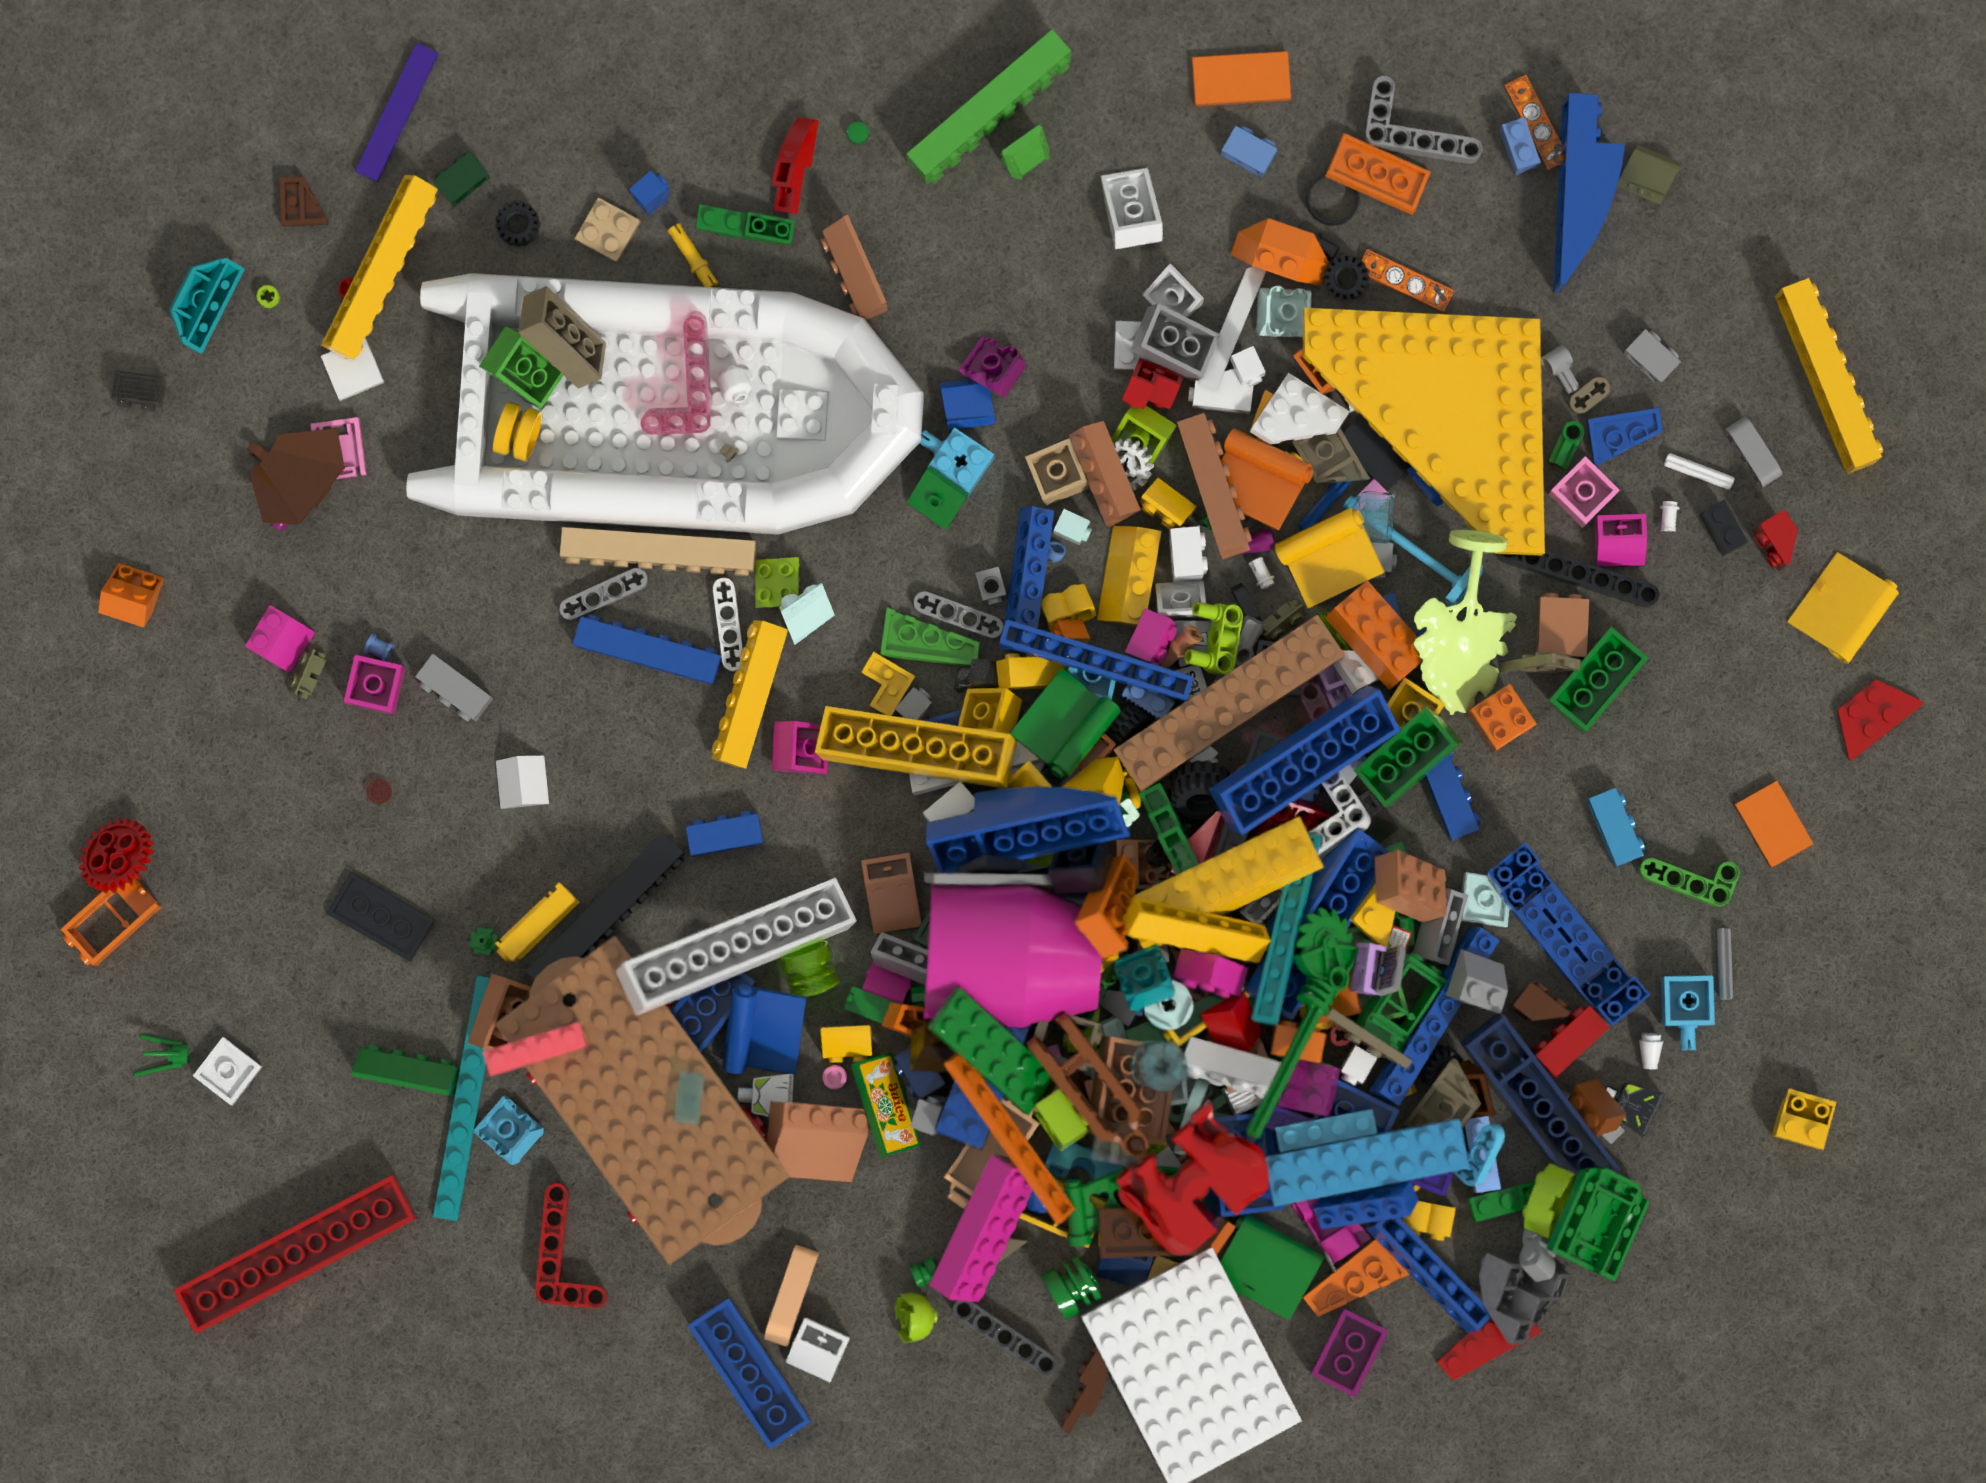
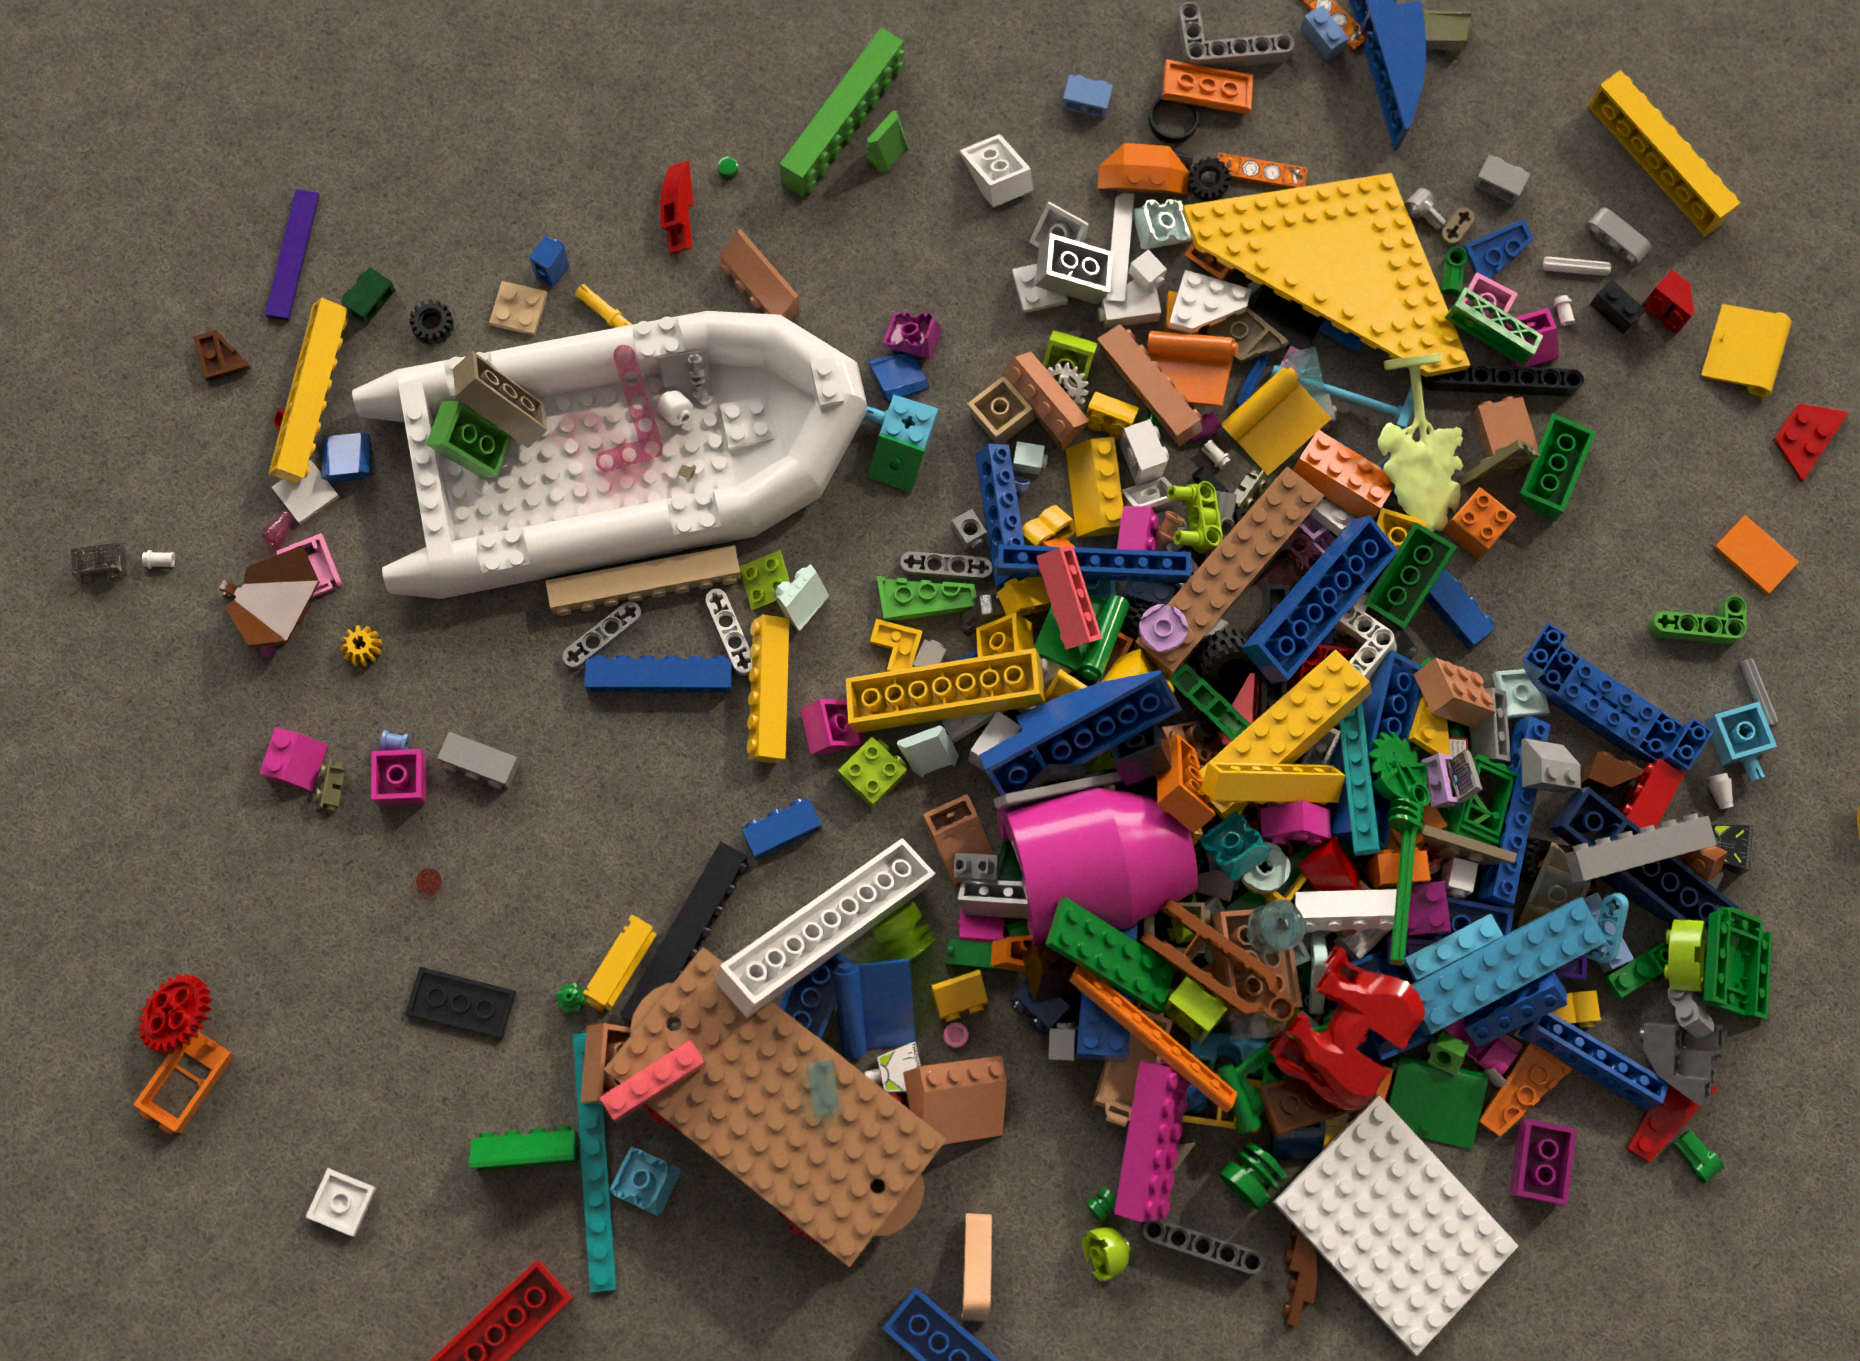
camera: 25 degrees left, 10 degrees down
(130, 595) = (133, 757): orange slope -> none
(177, 1054) = (285, 1200): green plant -> none
(195, 401) = (155, 559): none -> white pin
(203, 300) = (143, 461): teal wedge -> none
(264, 303) = (210, 440): lime bush -> none
(318, 400) = (278, 528): none -> clear pink cone
(370, 551) = (361, 655): none -> yellow gear
(399, 343) = (346, 457): none -> slope
(517, 431) = (479, 500): yellow wheel -> none
(522, 781) = (568, 832): white slope -> none
(545, 1254) = (727, 1296): red beam -> none
(744, 225) = (647, 271): green slope -> none
(754, 354) = (686, 374): none -> light grey hinge
(817, 1349) = (1019, 1315): white slope -> none
(827, 803) = (873, 771): none -> lime brick
(885, 1105) = (1015, 1047): tile -> none
(886, 799) = (929, 750): none -> light aqua slope
(897, 924) = (976, 866): none -> light grey hips
(1057, 693) = (1068, 597): none -> coral brick
(1143, 746) = (1163, 628): none -> lavender tile
(1152, 384) = (1064, 312): red brick -> none
(1241, 78) = (1060, 40): orange tile -> none
(1292, 1226) = (1447, 1053): none -> bright green brick
(1501, 1391) = (1702, 1161): none -> green piece
(1534, 1088) = (1640, 848): none -> light grey brick
(1576, 526) = (1493, 330): none -> green fence
(1616, 827) = (1616, 594): dark azure brick -> none

